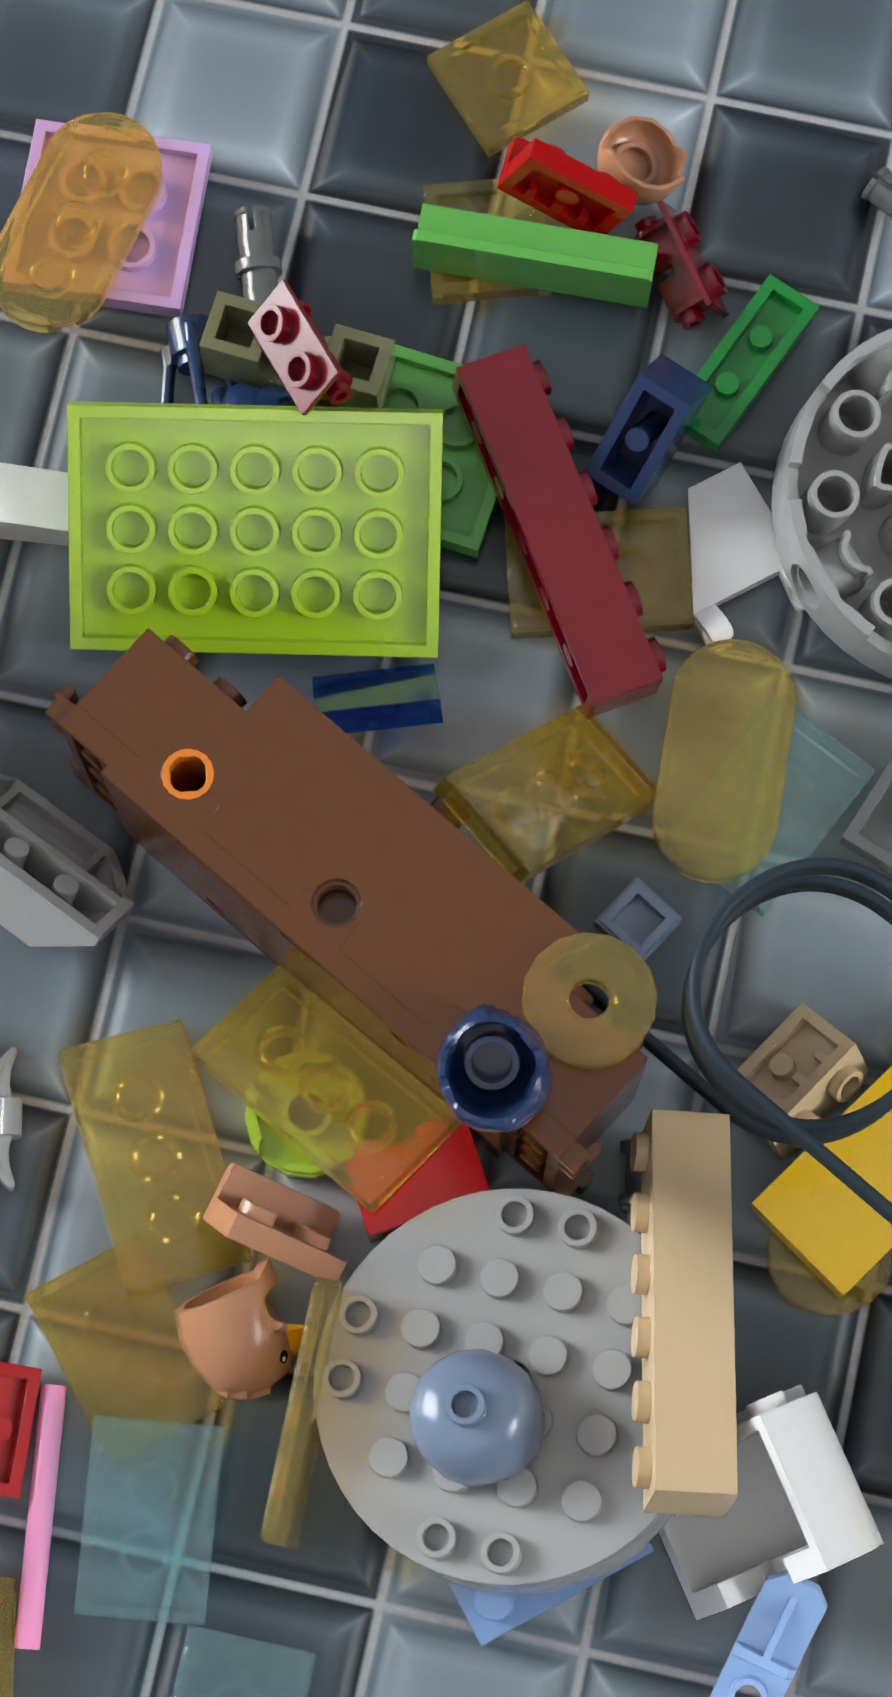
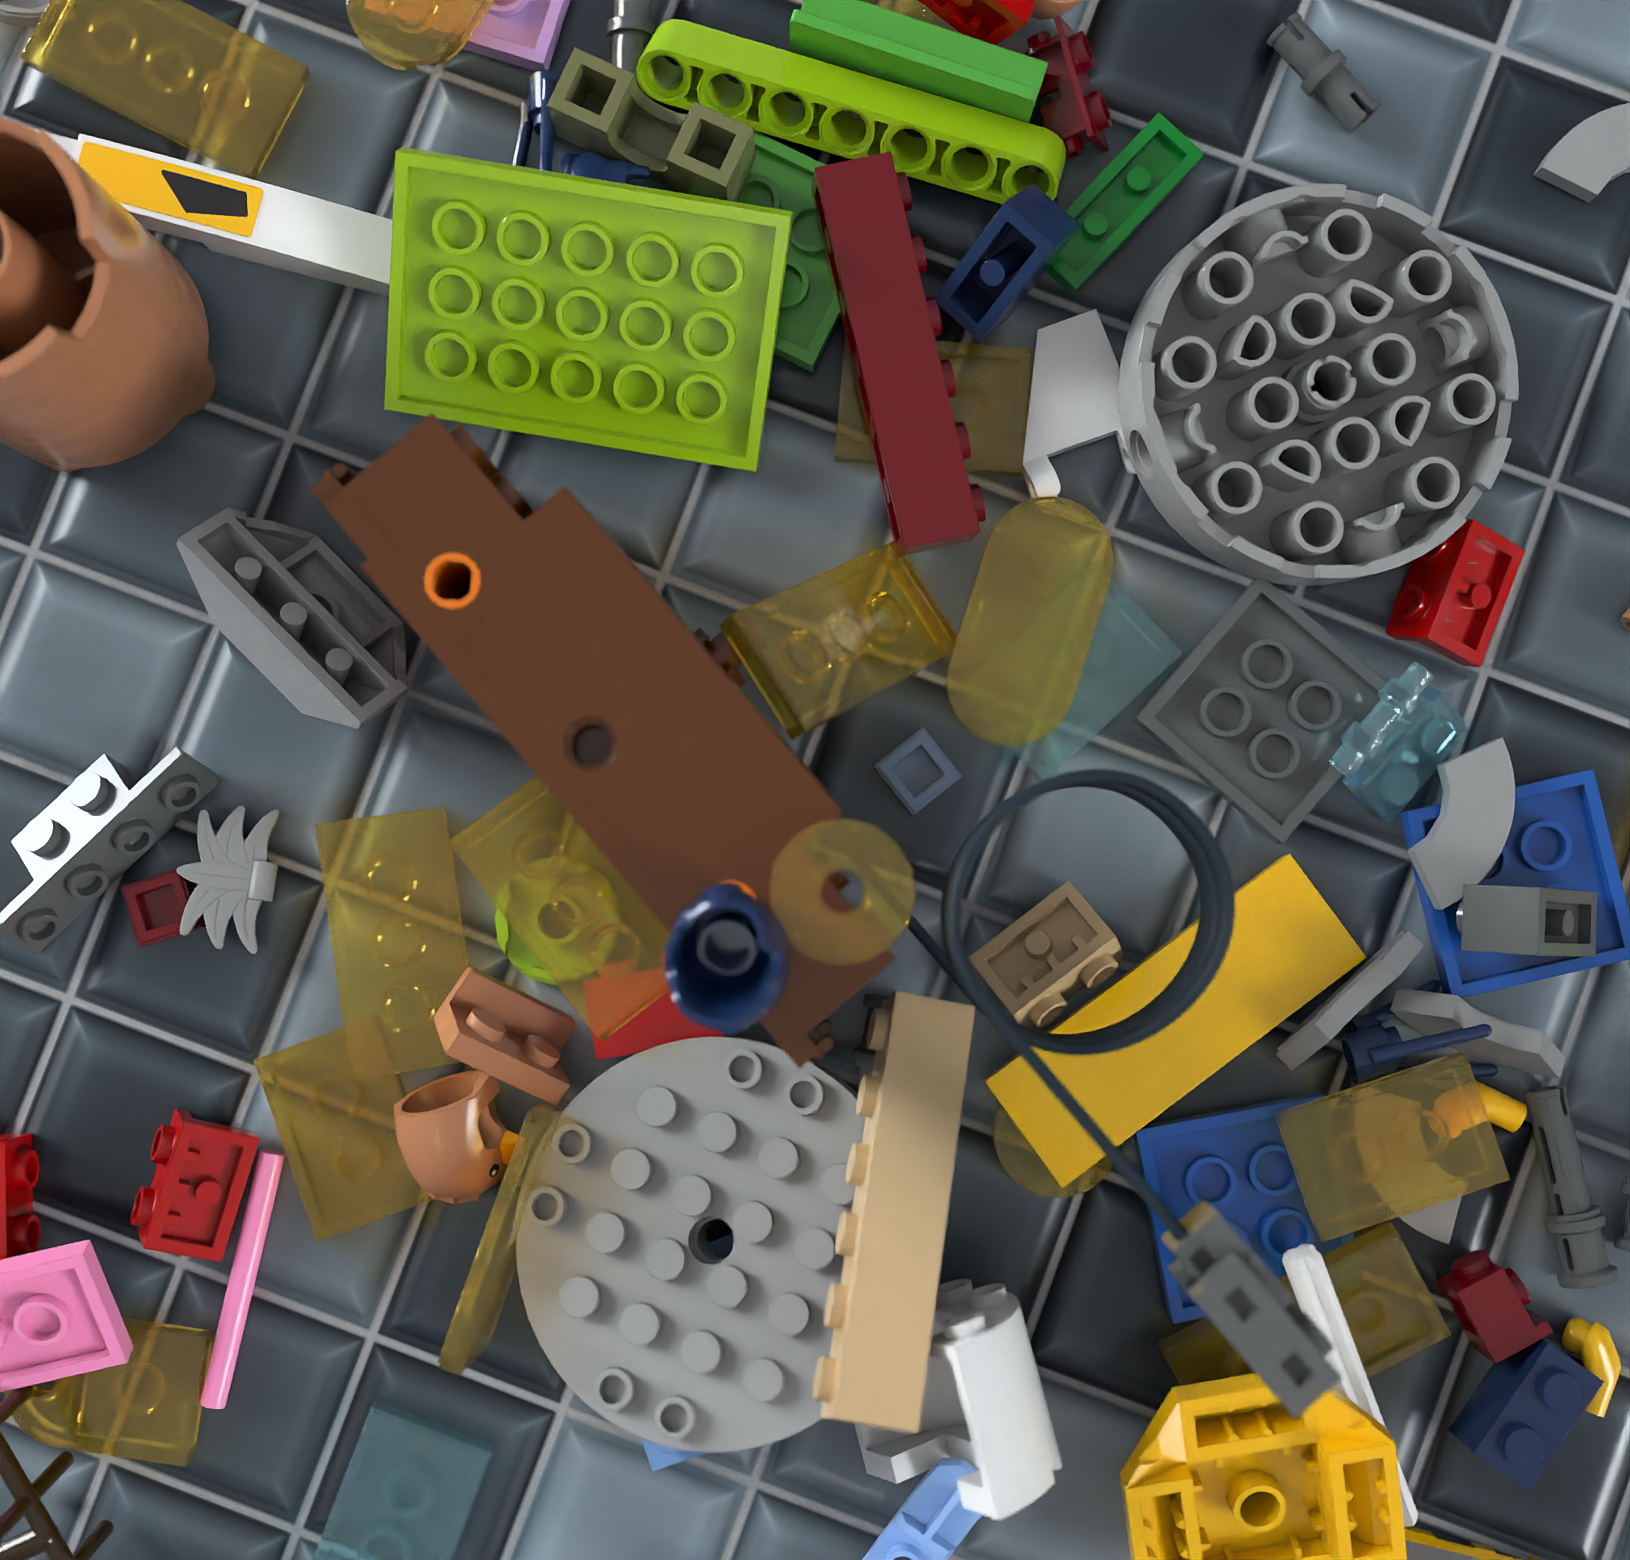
camera: 10 degrees right, 10 degrees up
(149, 1519) = (345, 1300): clear light blue tile -> none
(299, 350) = (647, 125): hinge -> none
(380, 698) = (683, 510): clear blue tile -> none
(477, 1417) = (670, 1279): sand blue cylinder -> none
(509, 303) = (823, 124): none -> lime beam

